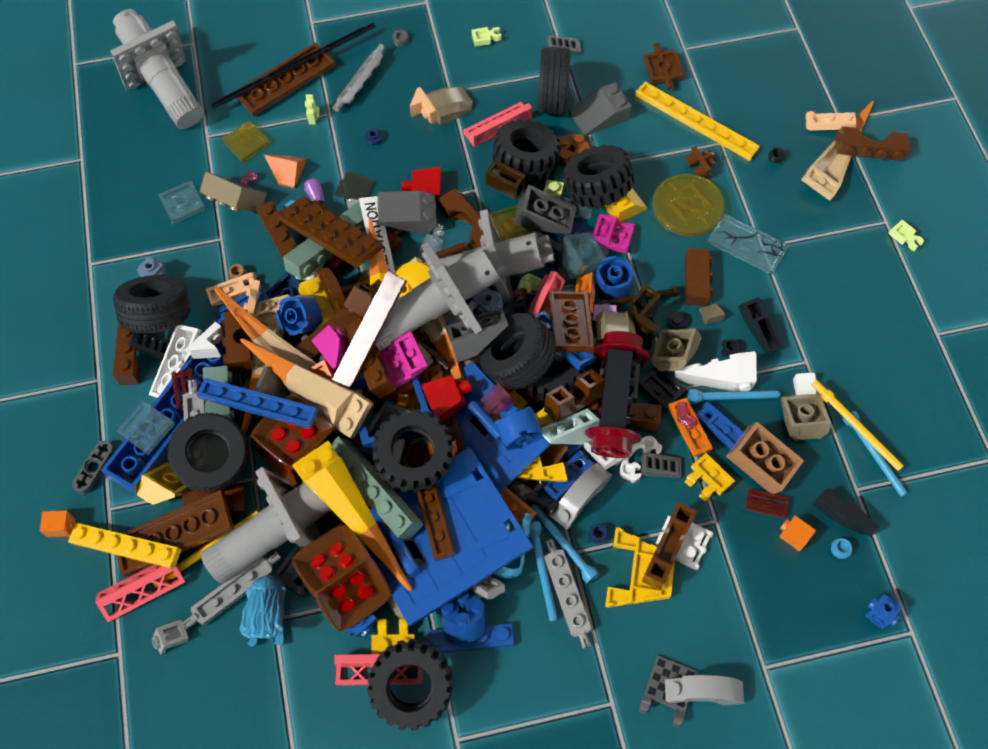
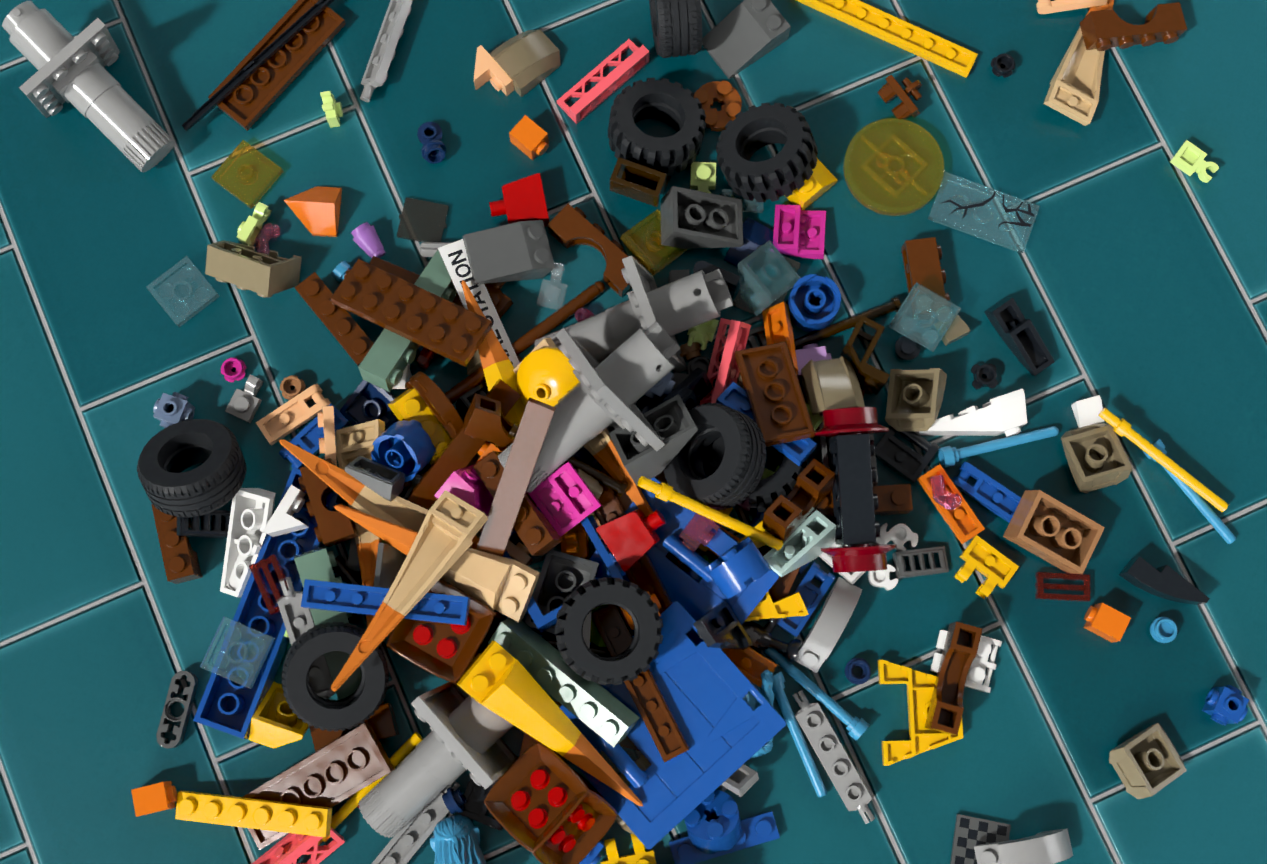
camera: 15 degrees left, 15 degrees up
(197, 252) = (228, 365): none -> dark pink plate
(203, 277) = (245, 403): none -> light grey plate
(240, 169) = (251, 227): none -> yellowish green plate
(272, 564) = (454, 800): none -> dark blue plate
(276, 327) = (377, 477): none -> dark grey slope
(305, 366) = (438, 545): none -> tan plate
(373, 150) = (433, 151): none -> dark blue plate
(439, 147) = (529, 138): none -> orange brick
(474, 361) = (665, 492): none -> yellow bar
(499, 472) = (722, 629): none -> black wing
(692, 298) = (924, 317): none -> clear light blue plate
(813, 642) = (1147, 762): none -> dark tan slope

